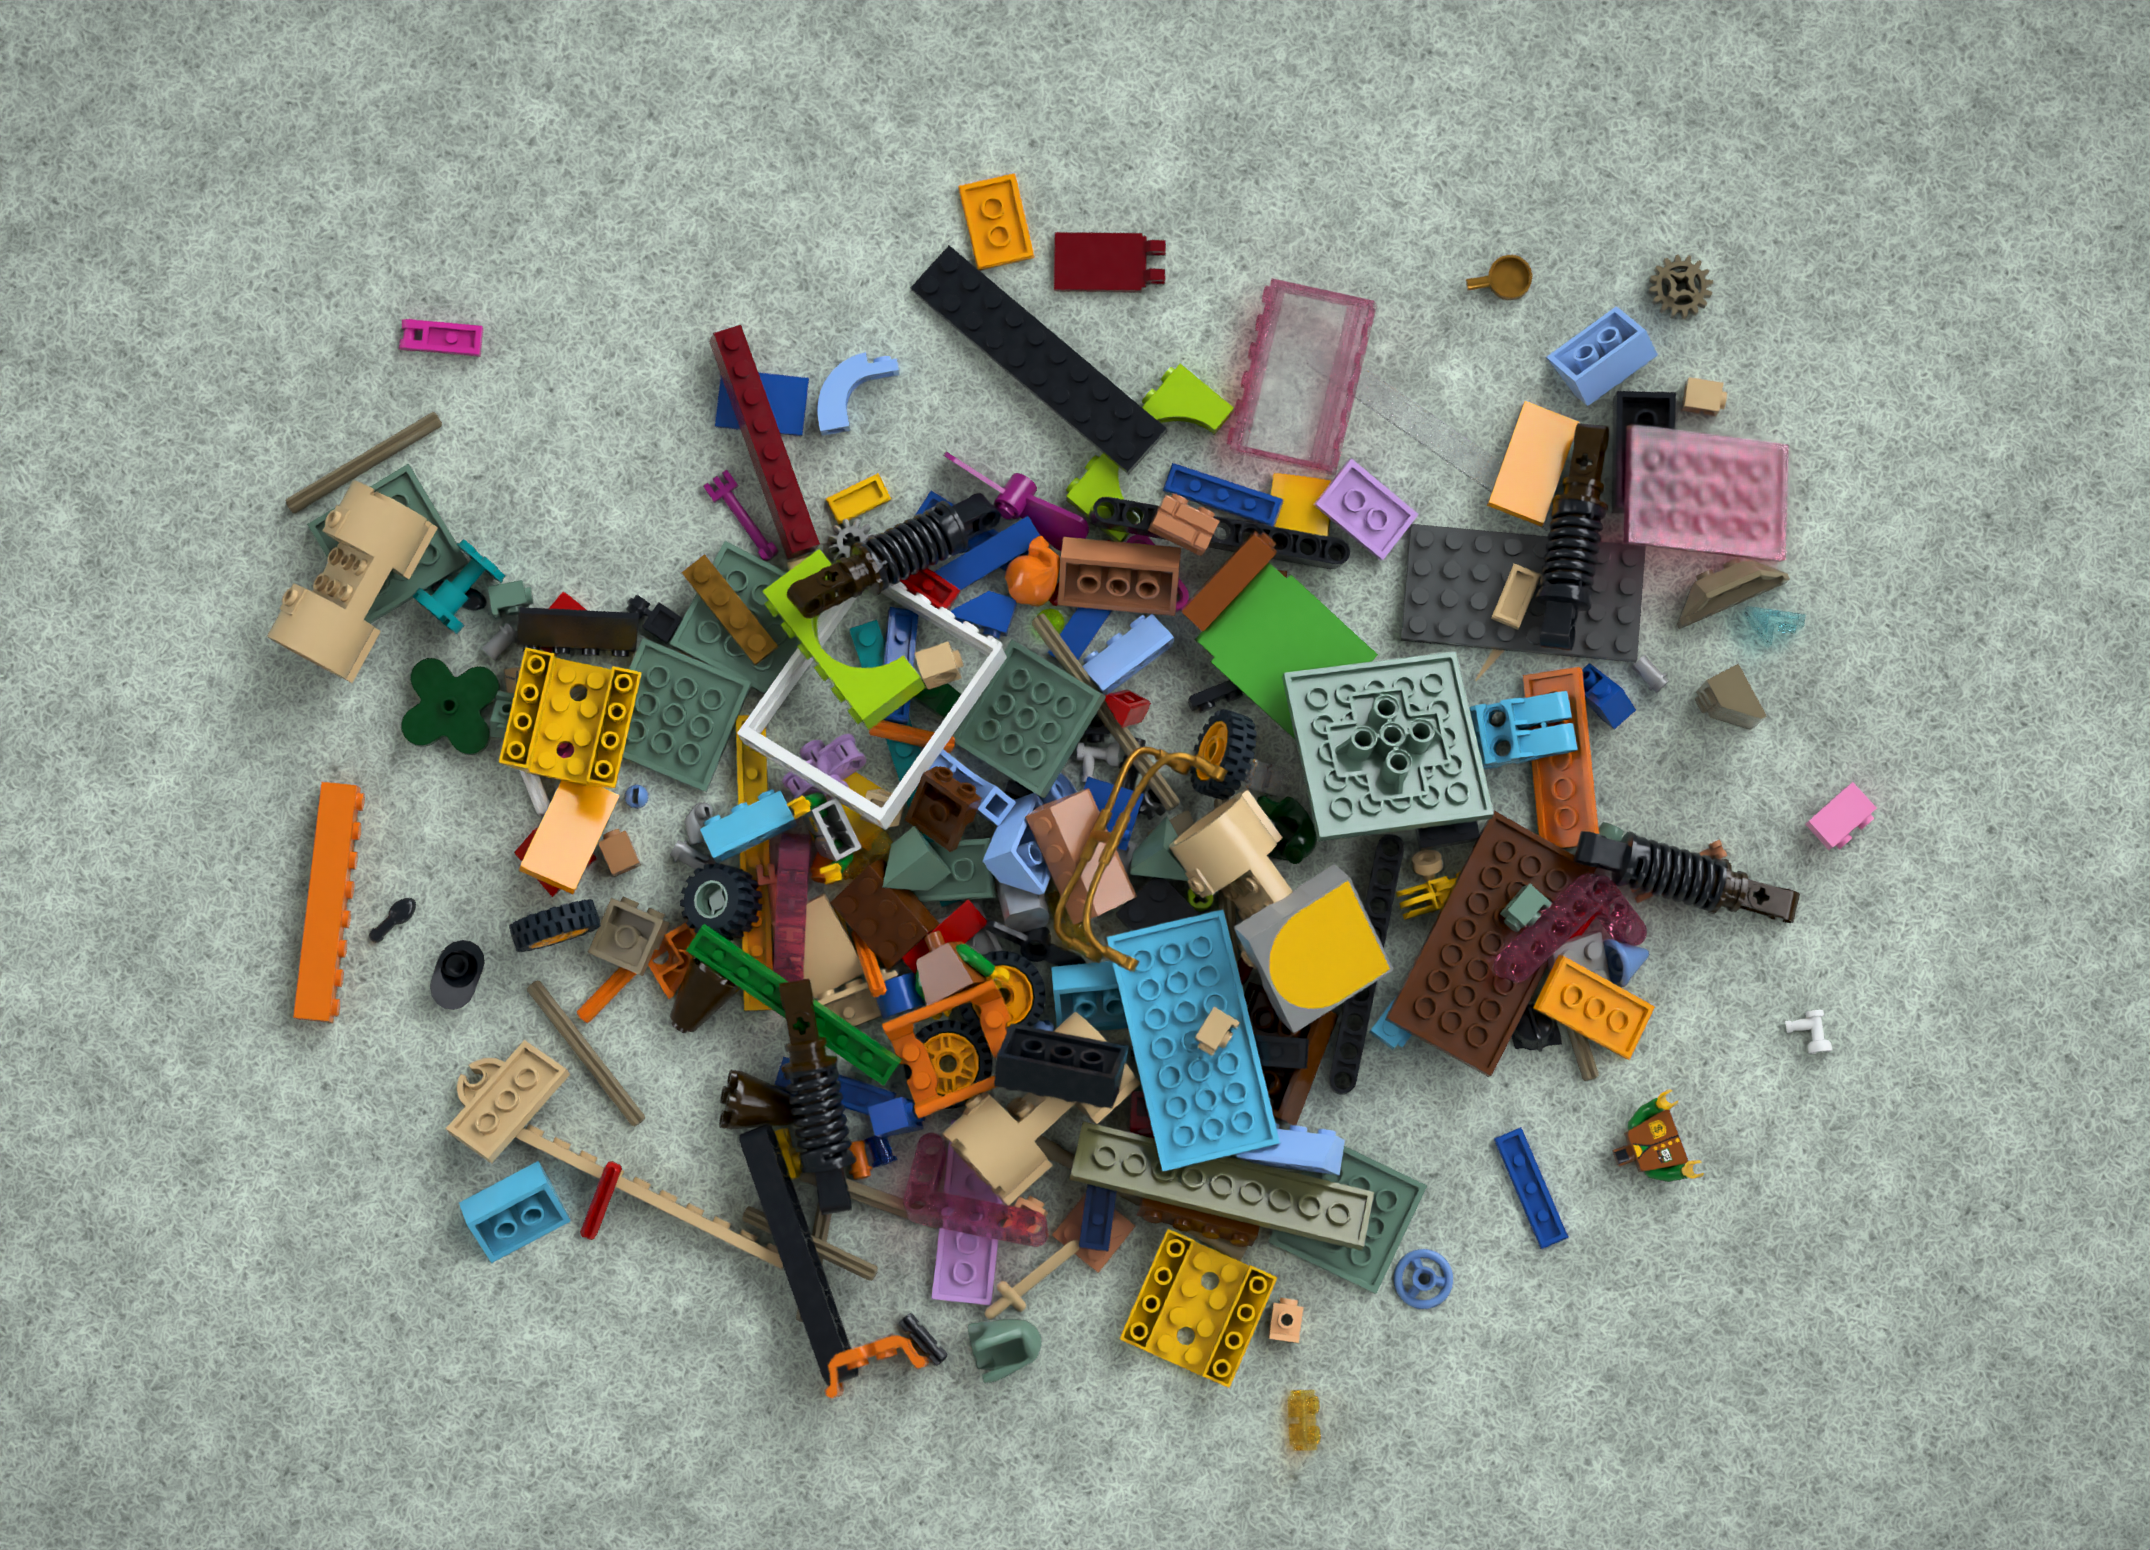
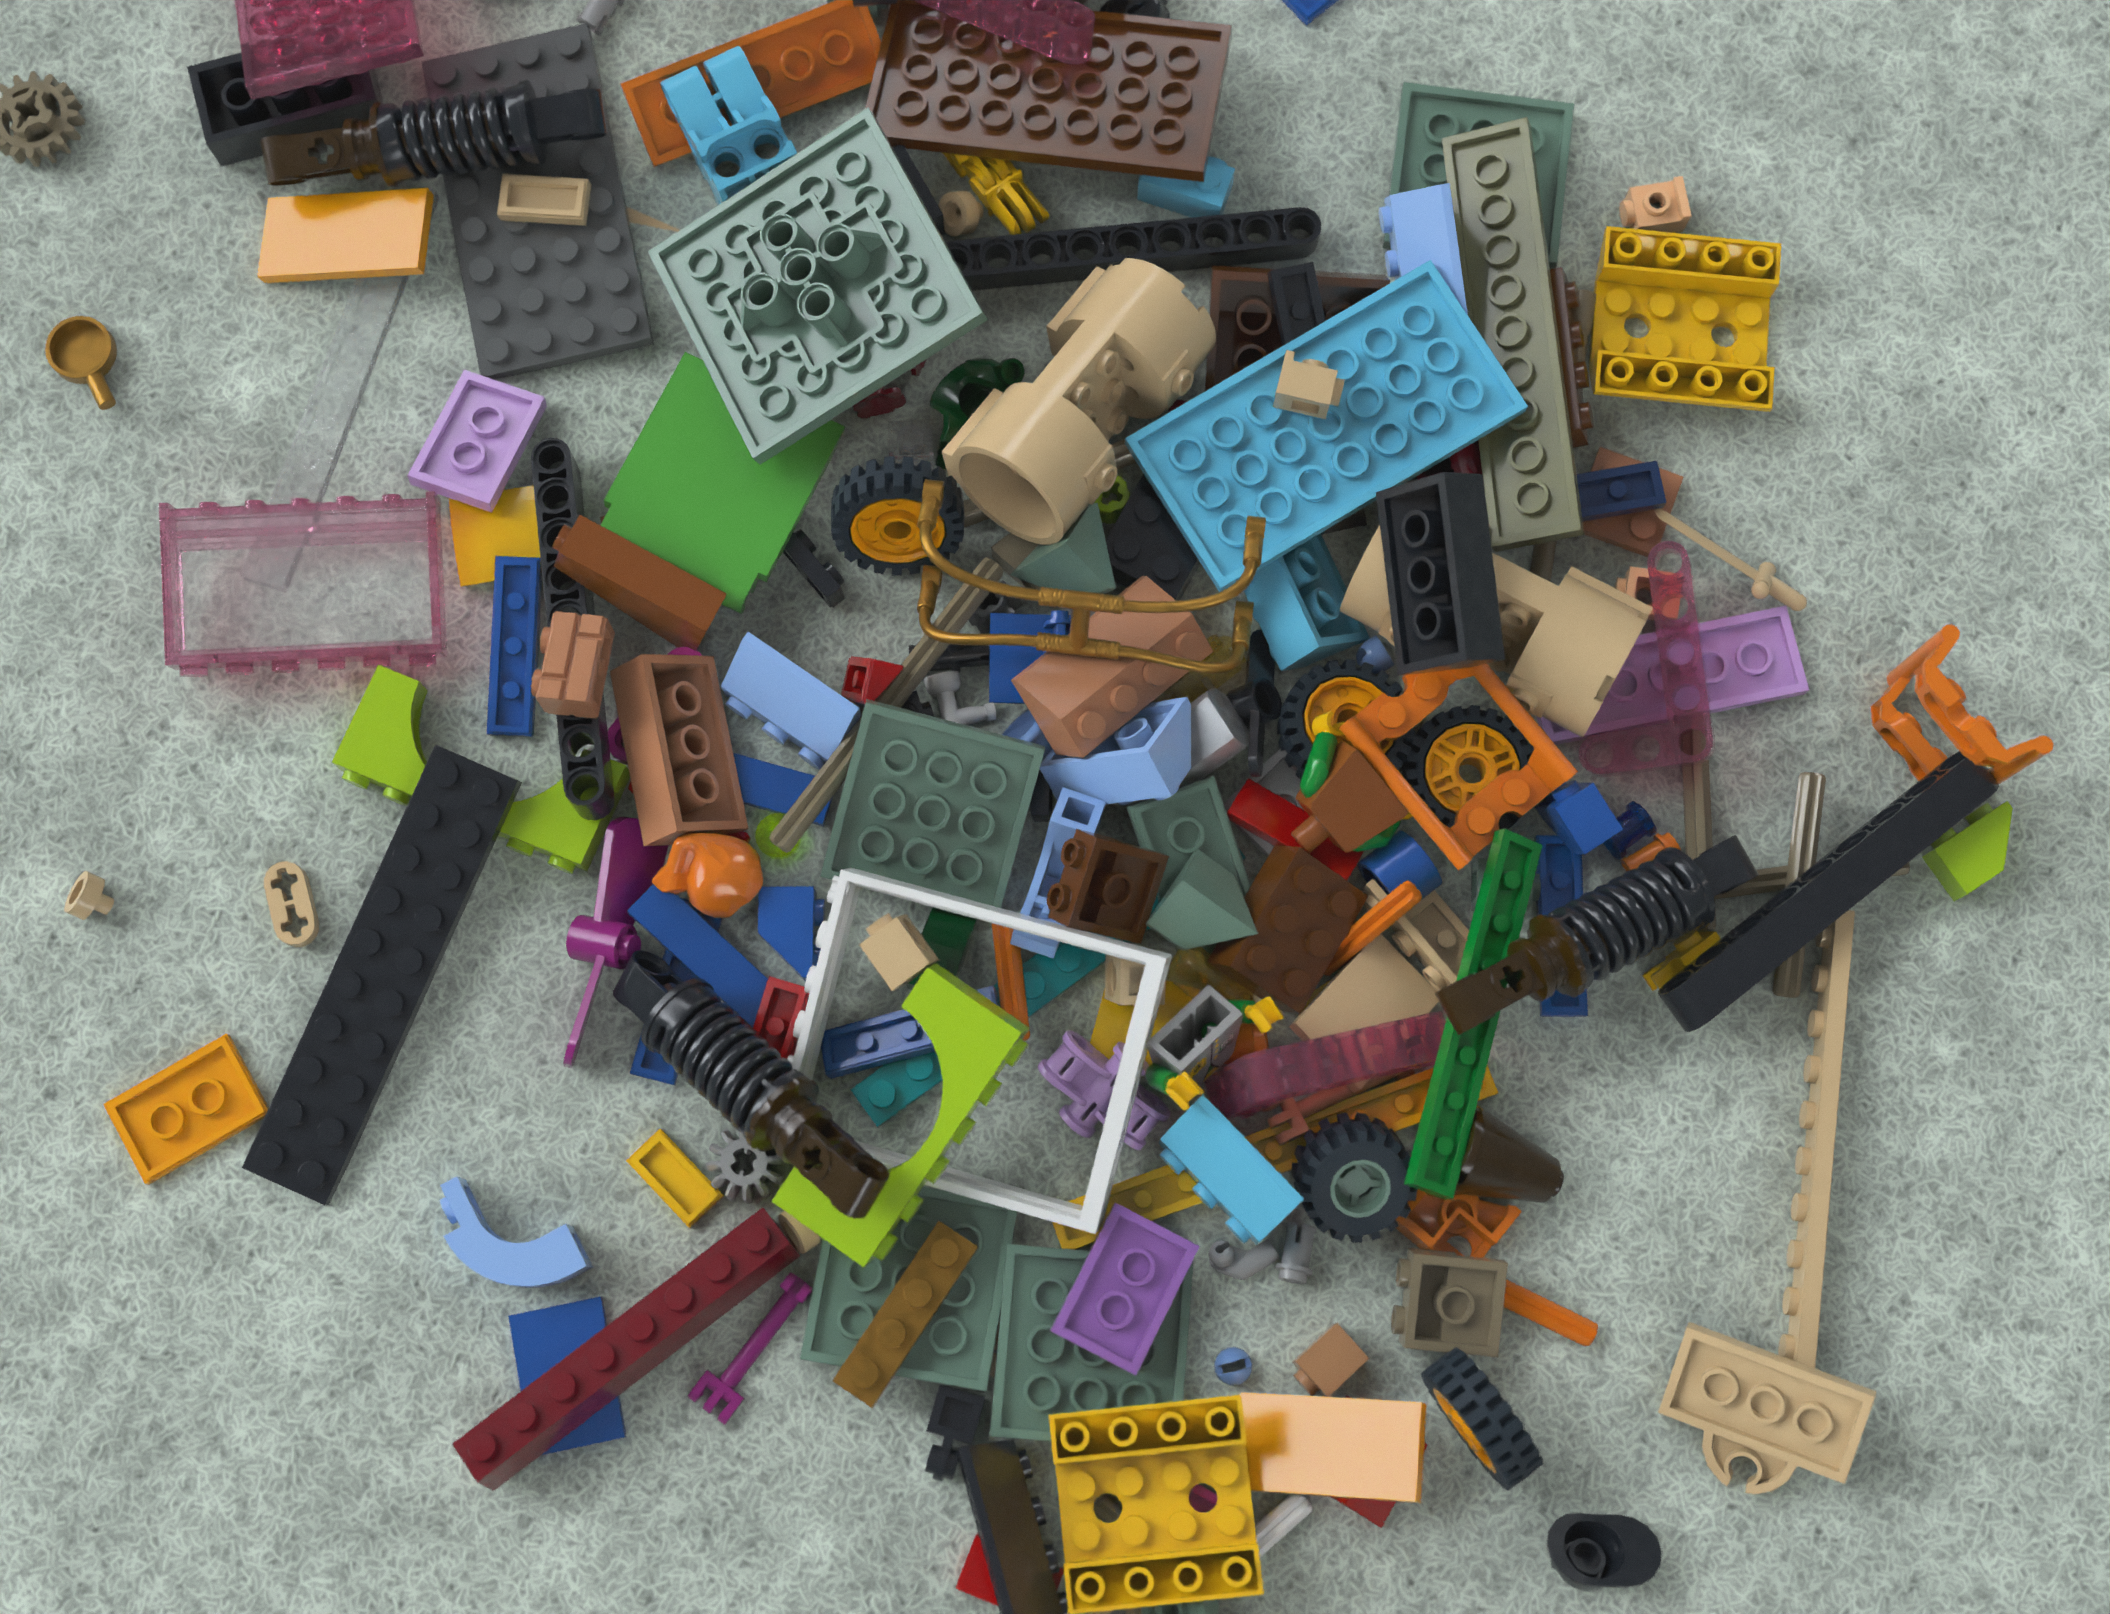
camera: 110 degrees left, 5 degrees down
(514, 1212) = (1917, 1340): medium azure slope -> none
(586, 1053) = (1642, 1312): dark tan axle -> none
(601, 1200) = (1856, 1209): red axle -> none
(700, 742) = (1124, 1288): none -> medium lavender plate
(753, 1103) = (1631, 1032): dark brown cone -> none
(793, 1361) = (1974, 854): none -> lime slope
(923, 1339) = (1866, 686): black axle -> none
(1003, 1346) = (1839, 565): sand green hair -> none
(1102, 308) = (280, 906): none -> tan beam
(1105, 262) = (207, 925): dark red tile -> none
(1146, 194) = (88, 896): none -> tan tile
(1304, 1434) = (1793, 143): clear yellow hinge -> none
(1314, 948) = (1140, 288): yellow tile -> none
(1446, 1281) = (1530, 36): medium blue piece -> none
(1524, 908) = (984, 47): sand green brick -> none
(1602, 355) = (161, 191): light blue slope -> none
(1606, 697) = (652, 41): blue slope -> none
(1703, 396) = (184, 42): tan brick -> none

